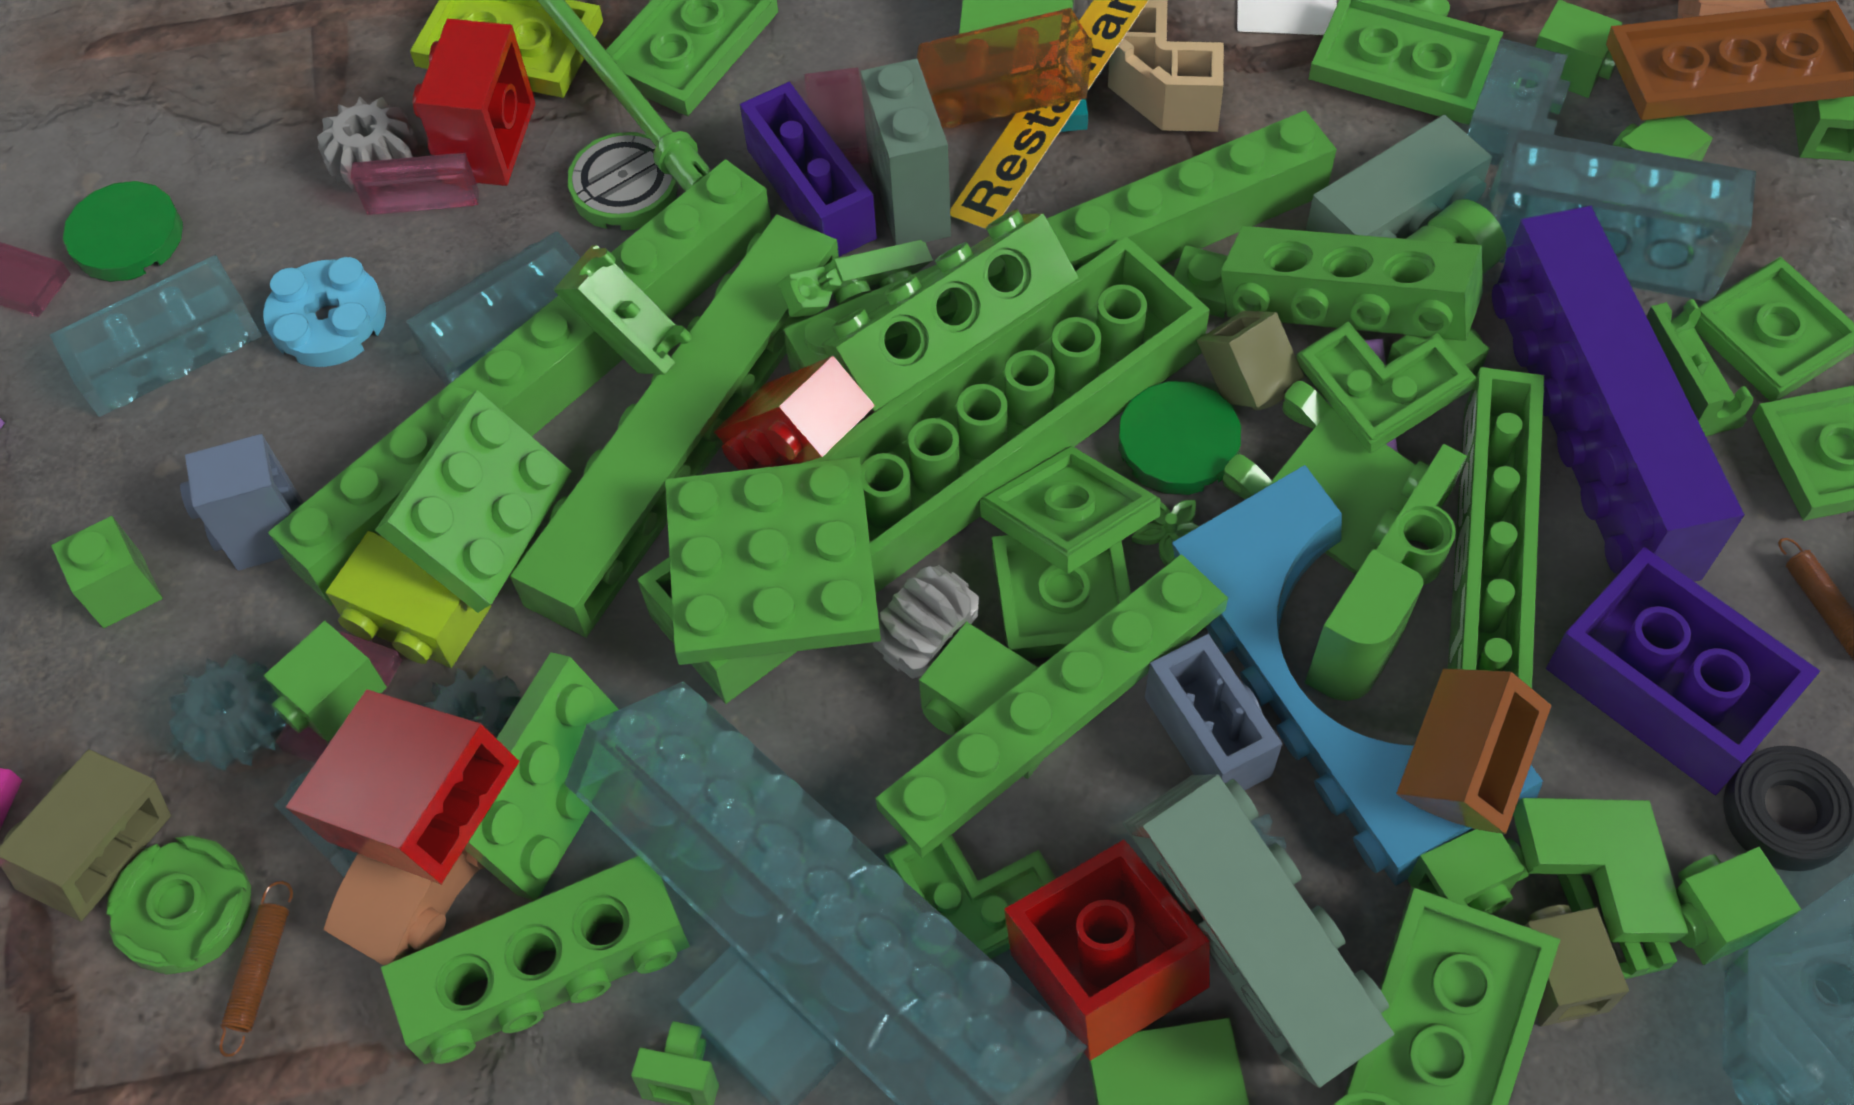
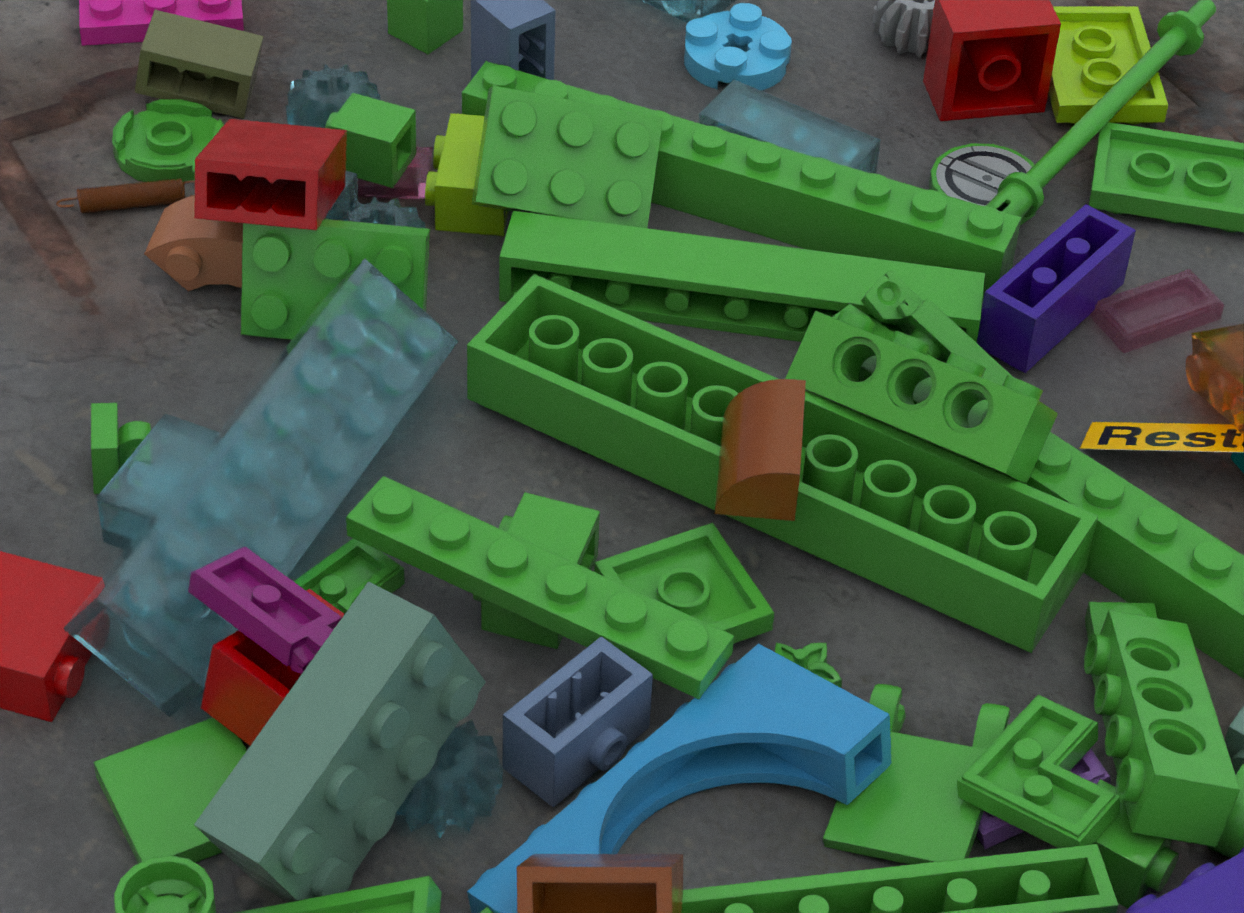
camera: 65 degrees right, 15 degrees down
(415, 183) = (893, 55): clear pink tile -> none
(430, 981) = (174, 331): bright green brick -> none
(621, 312) = (801, 187): bright green hinge -> none
(770, 561) = (587, 346): bright green plate -> none
(794, 417) = (741, 318): brick -> none
(907, 152) = (1106, 335): sand green brick -> none
(924, 619) = (598, 480): light grey gear -> none
(983, 452) = (762, 451): none -> dark orange brick
(1070, 509) = (771, 572): bright green tile -> none
(1075, 940) = (265, 606): none -> magenta hinge
(1178, 437) = (917, 648): green tile -> none
(1251, 359) = (1021, 666): olive brick -> none
(1384, 591) = (739, 809): bright green plate -> none

